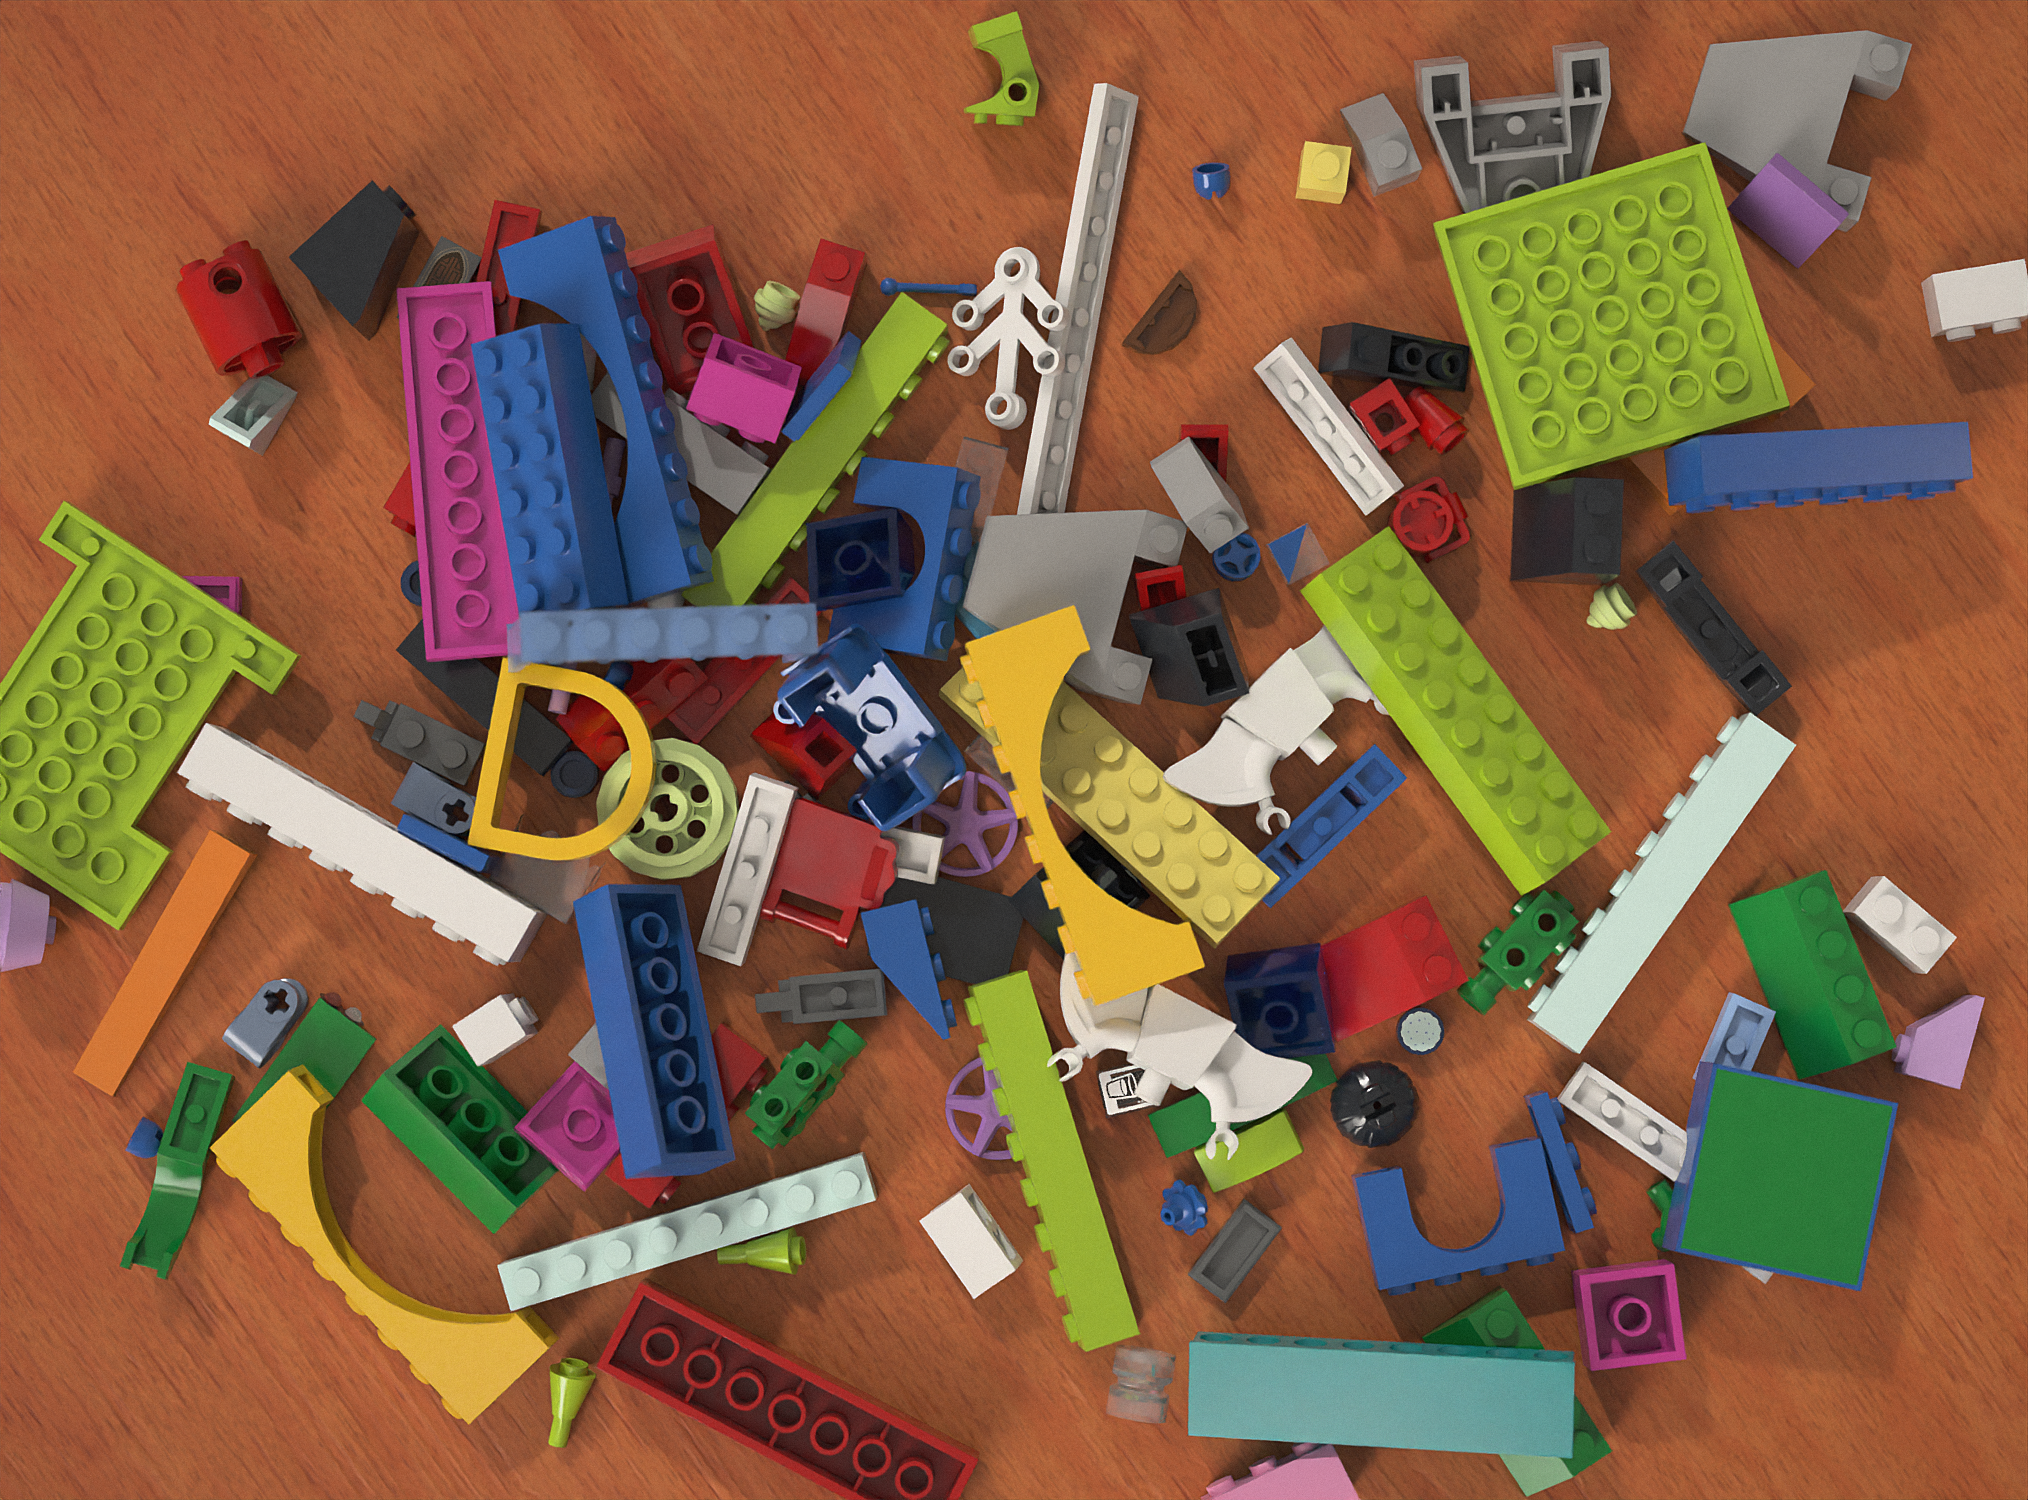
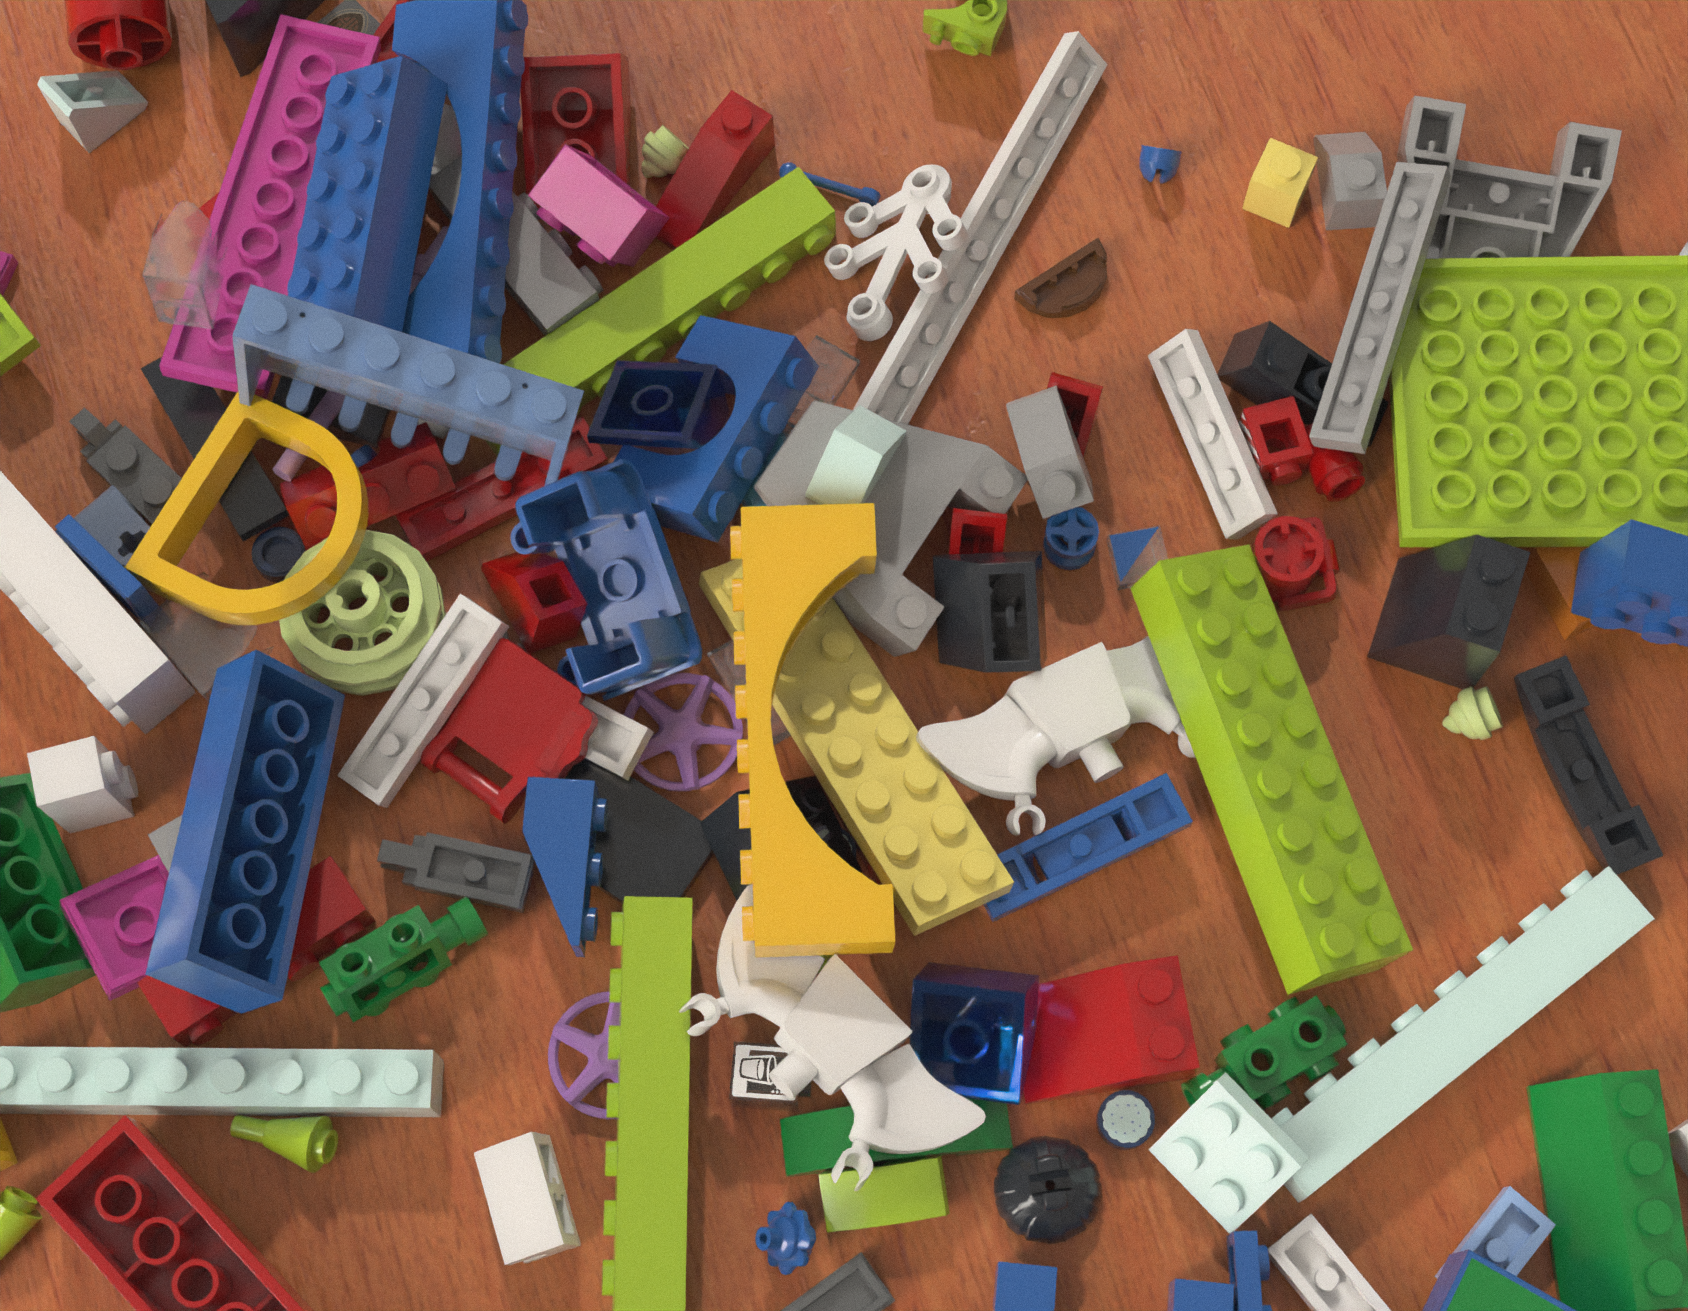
camera: 15 degrees right, 15 degrees down
(425, 576) = (183, 268): none -> clear piece
(822, 386) = (680, 225): blue tile -> none
(1043, 562) = (854, 458): none -> light aqua slope
(1442, 275) = (1380, 307): none -> light grey plate
(1509, 1037) = (1228, 1153): none -> light aqua plate

